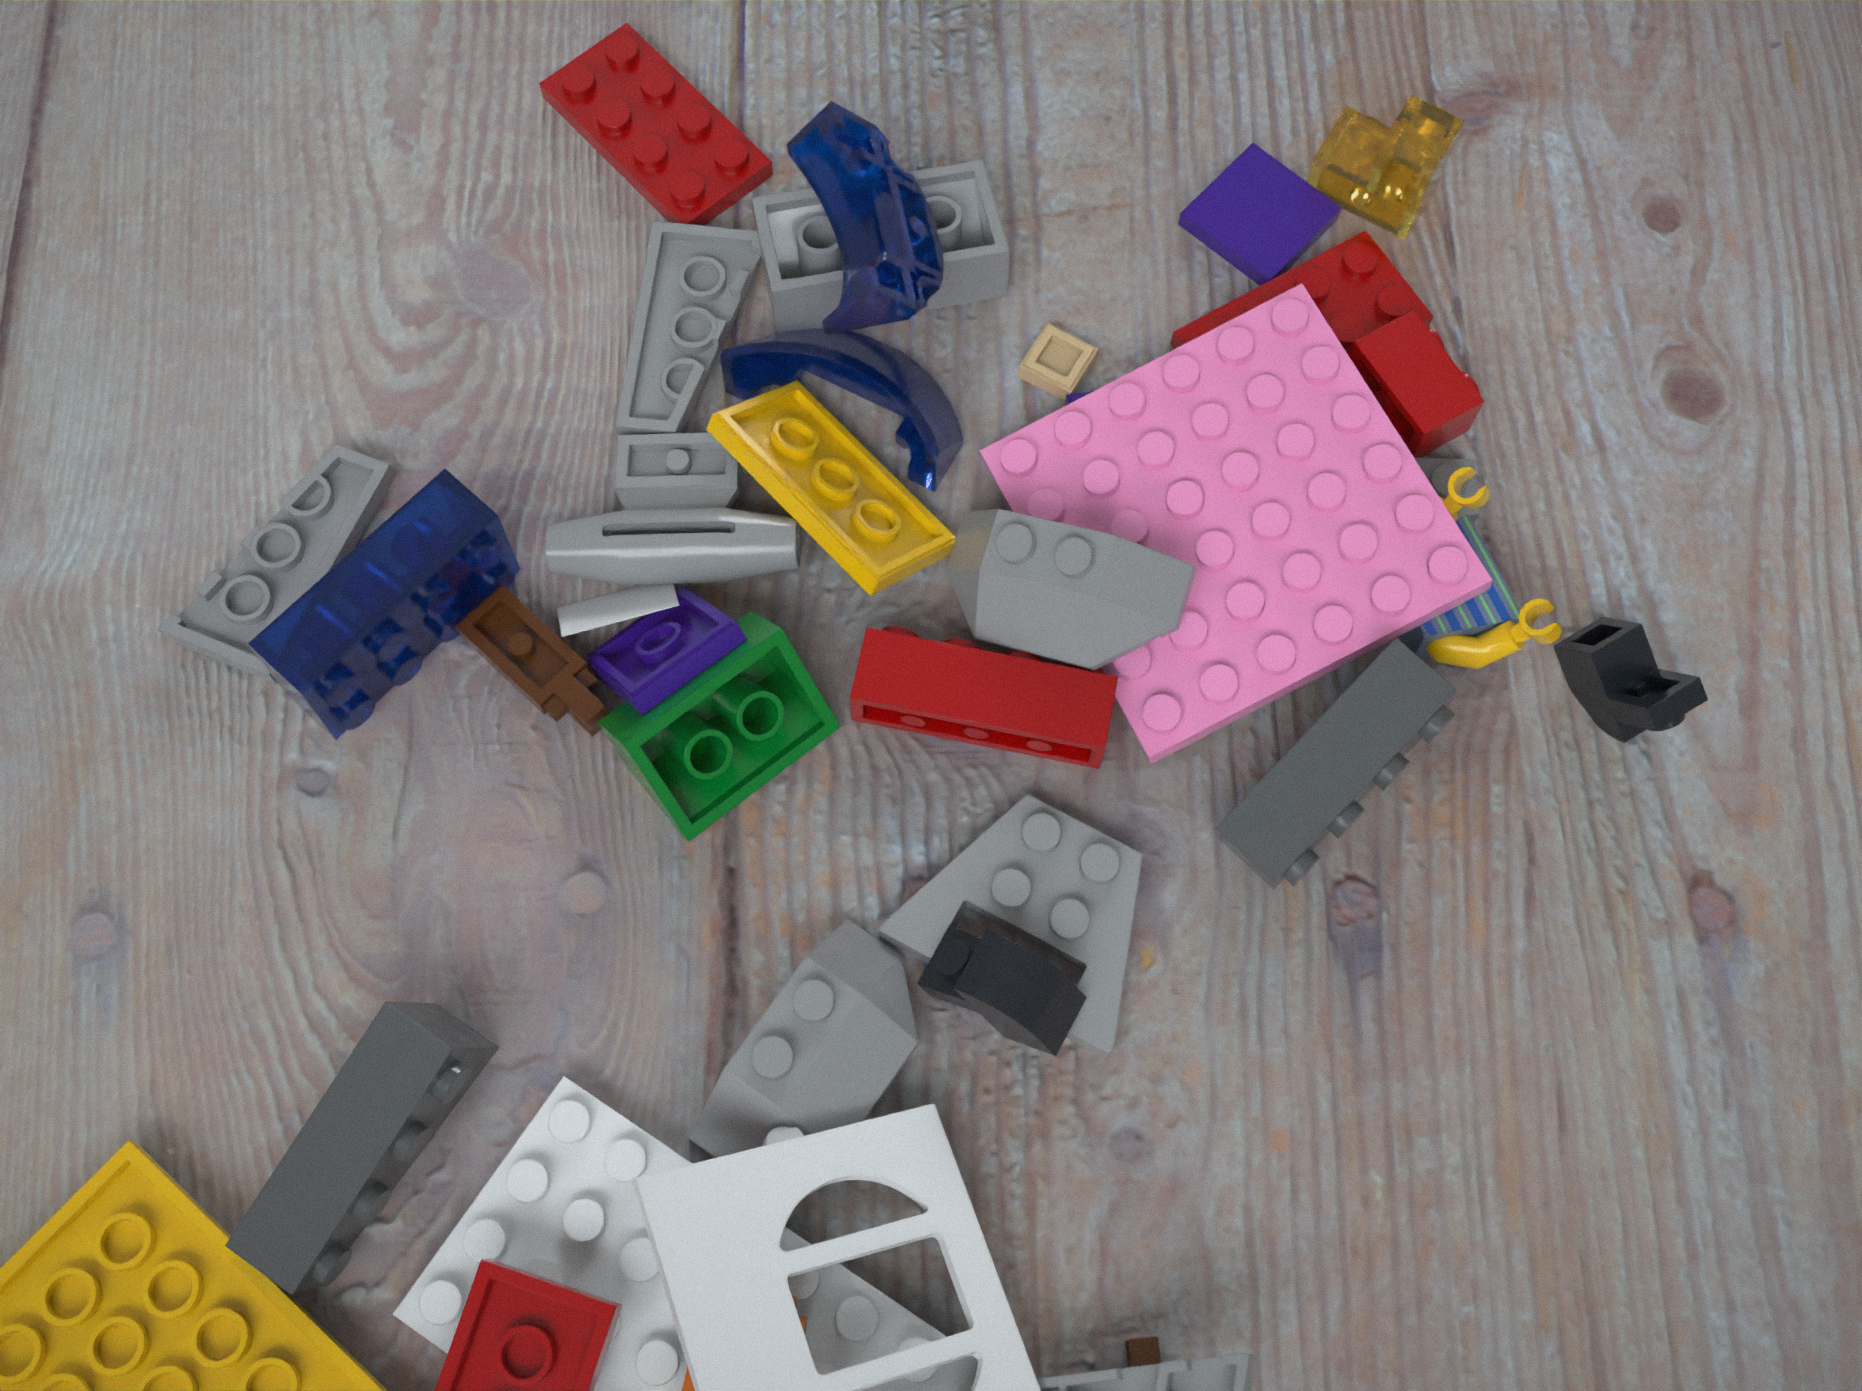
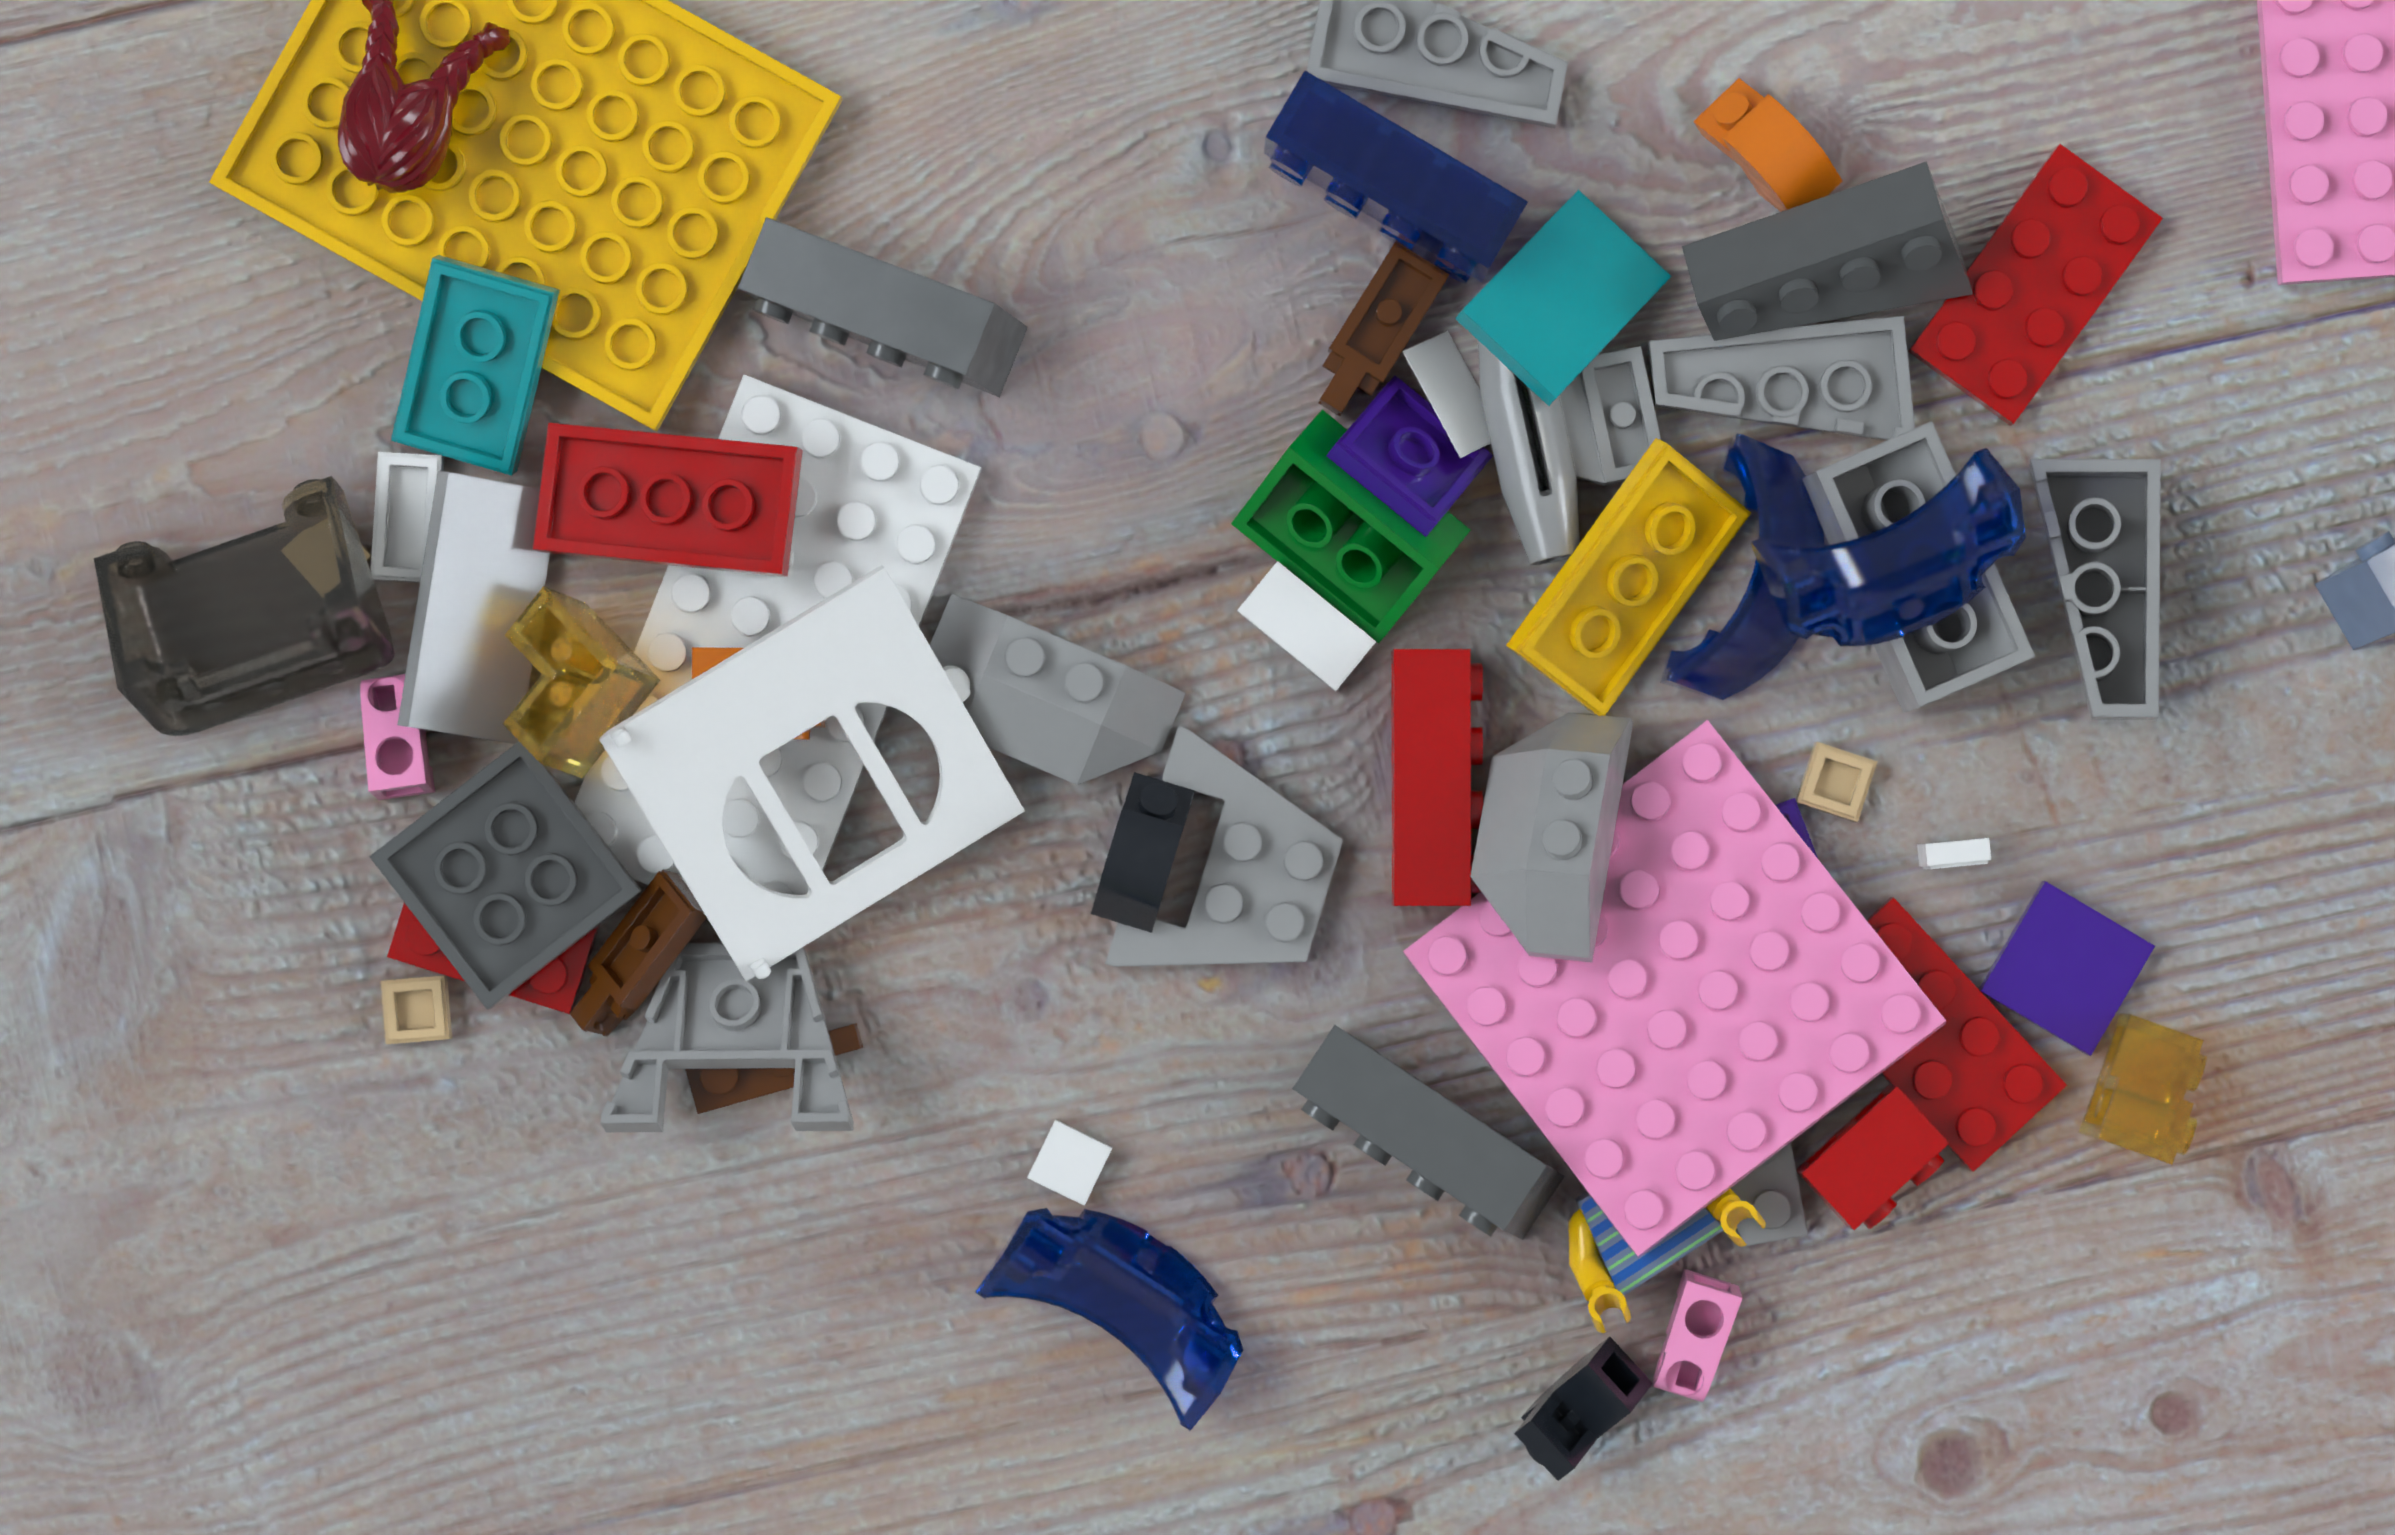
camera: 80 degrees right, 20 degrees up
(469, 284) = (1769, 146): none -> orange brick
(553, 487) = (1563, 297): none -> teal tile
(581, 254) = (1830, 258): none -> dark grey wedge
(807, 789) = (1306, 626): none -> white tile
(940, 102) = (2107, 565): none -> light grey wedge
(1143, 274) = (1954, 853): none -> white tile
(1311, 1137) = (1069, 1162): none -> white tile
(1460, 1094) = (1130, 1289): none -> clear blue windscreen
(1562, 568) = (1696, 1335): none -> bright pink leg

